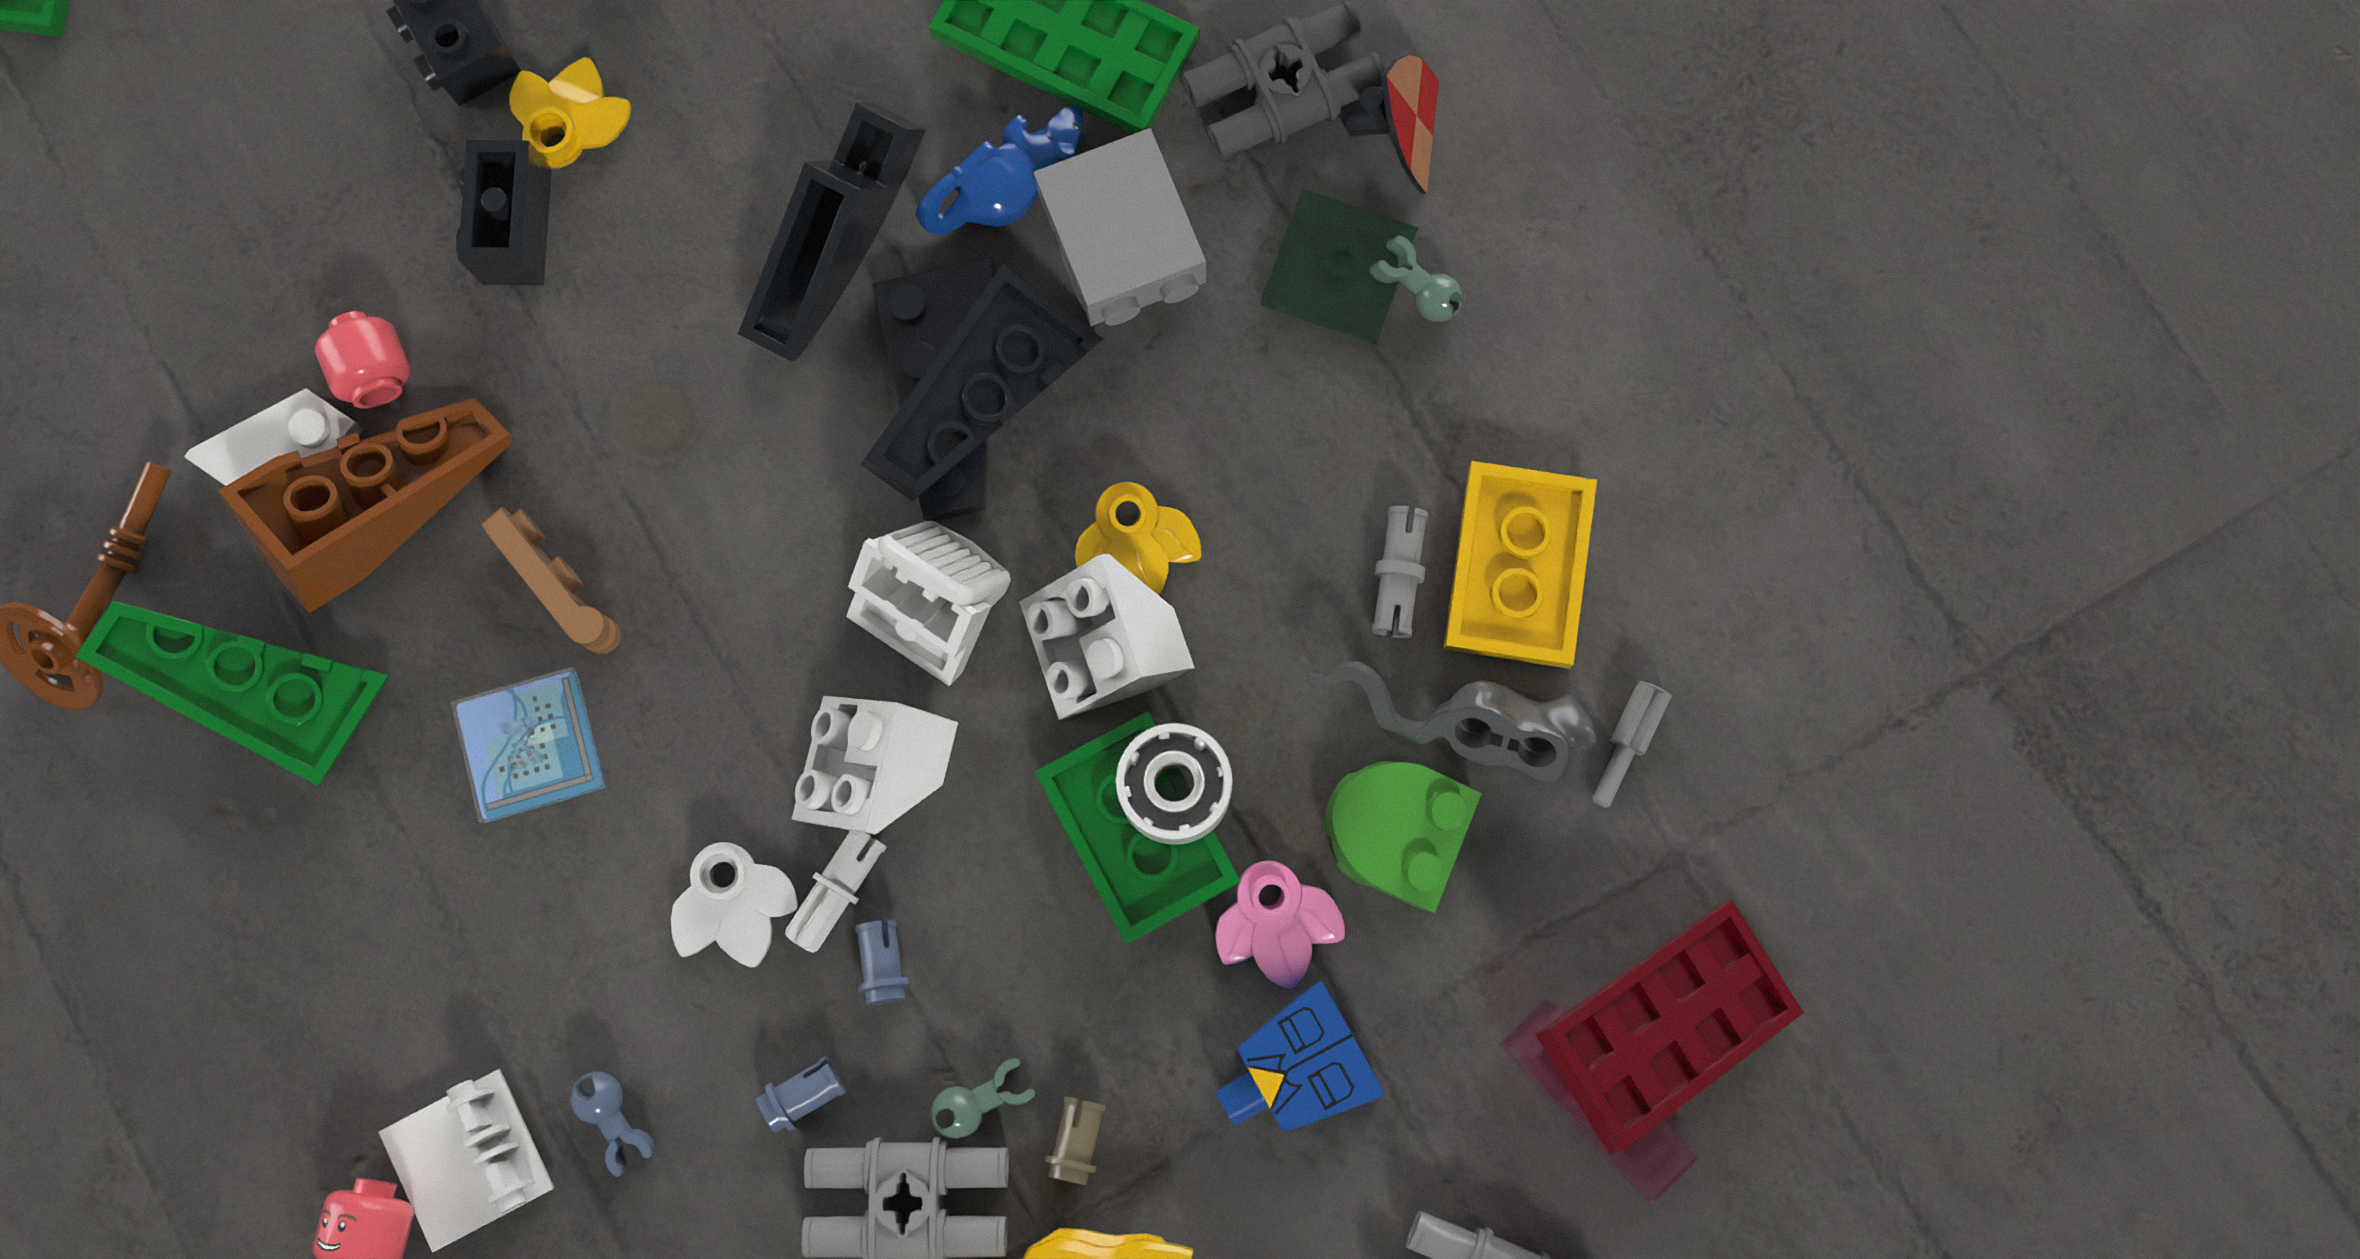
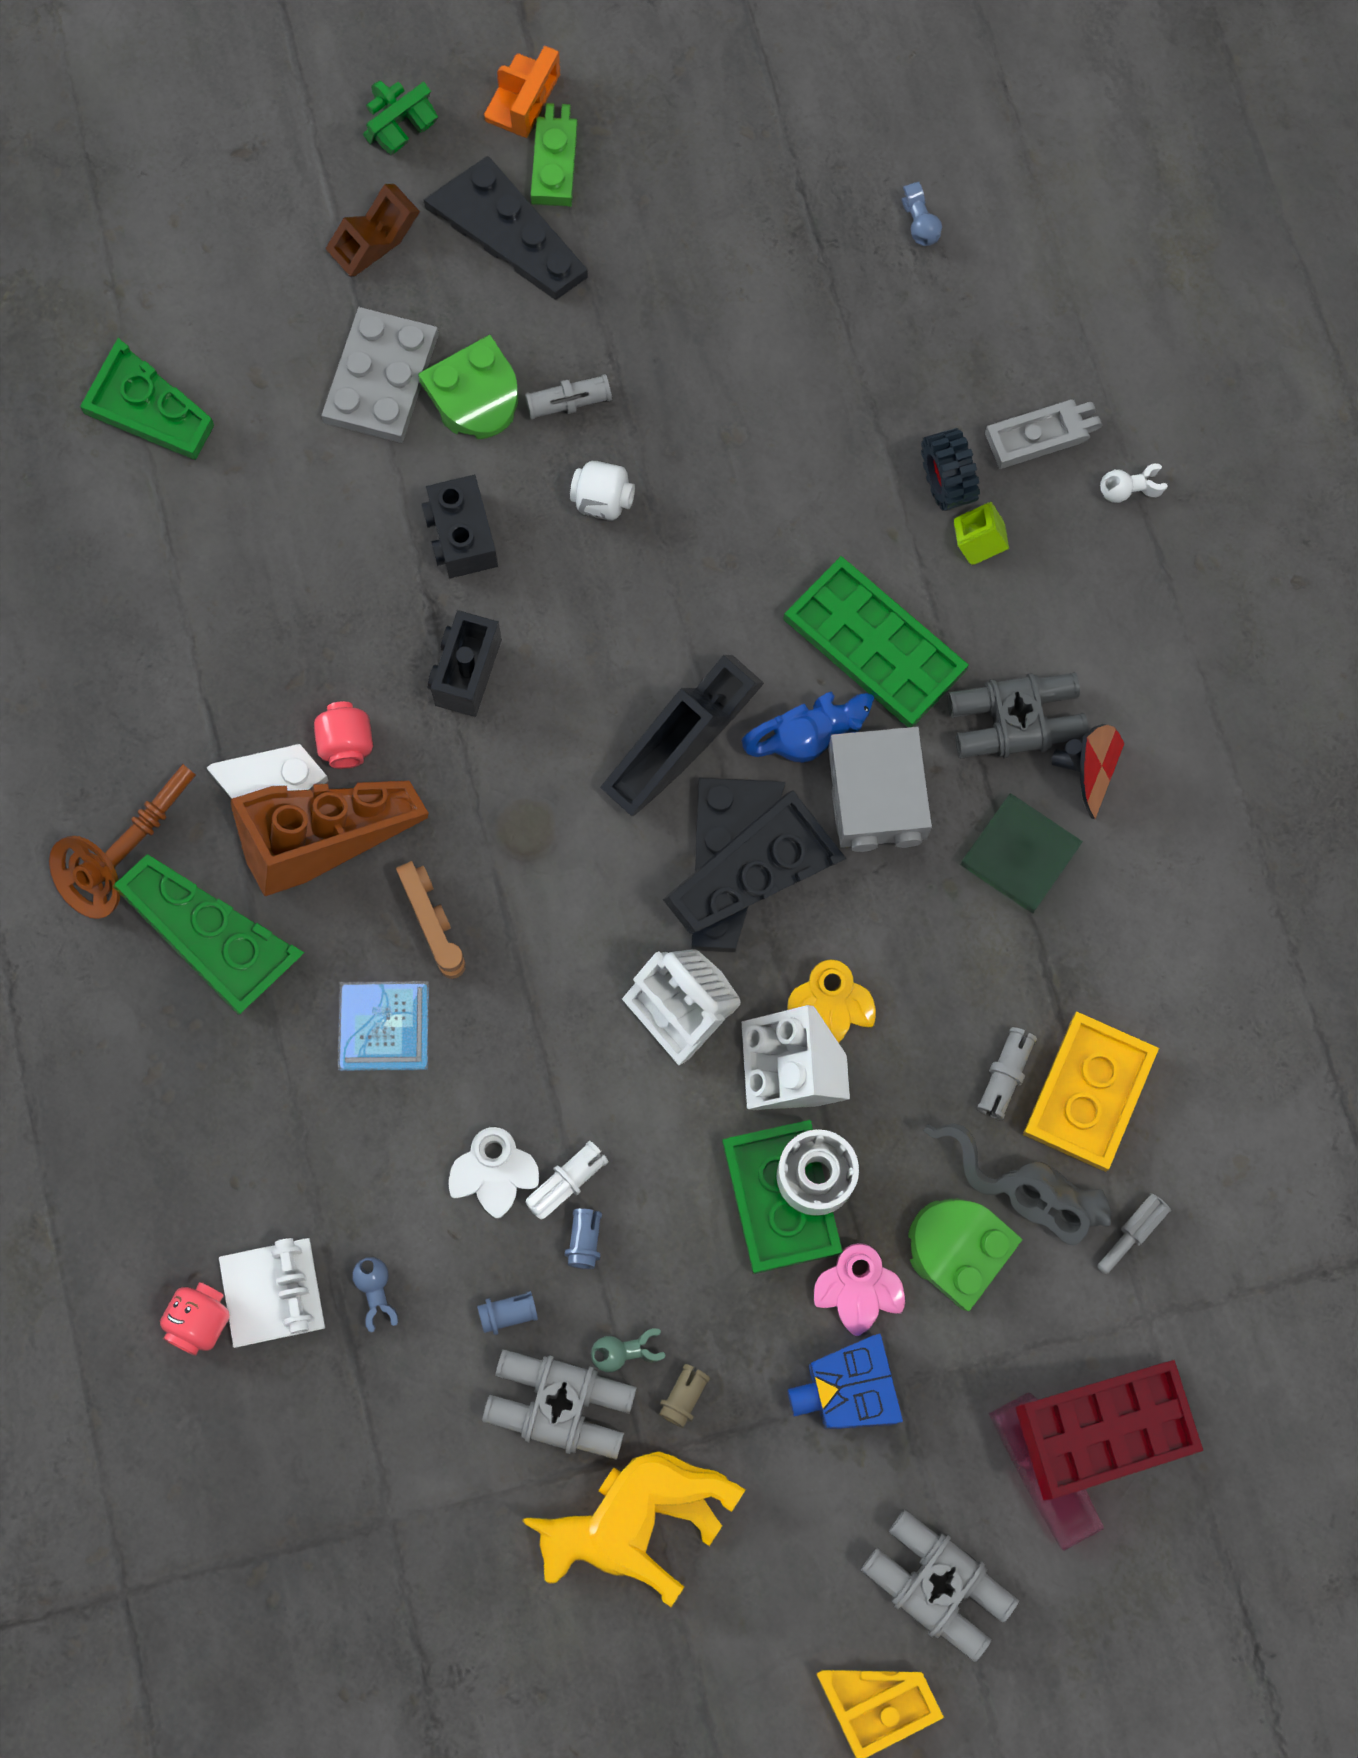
camera: 10 degrees right, 5 degrees down
(567, 106) = (526, 601): yellow plate -> none
(870, 763) = (613, 1101): white slope -> none
(1431, 292) = (1079, 889): sand green arm -> none

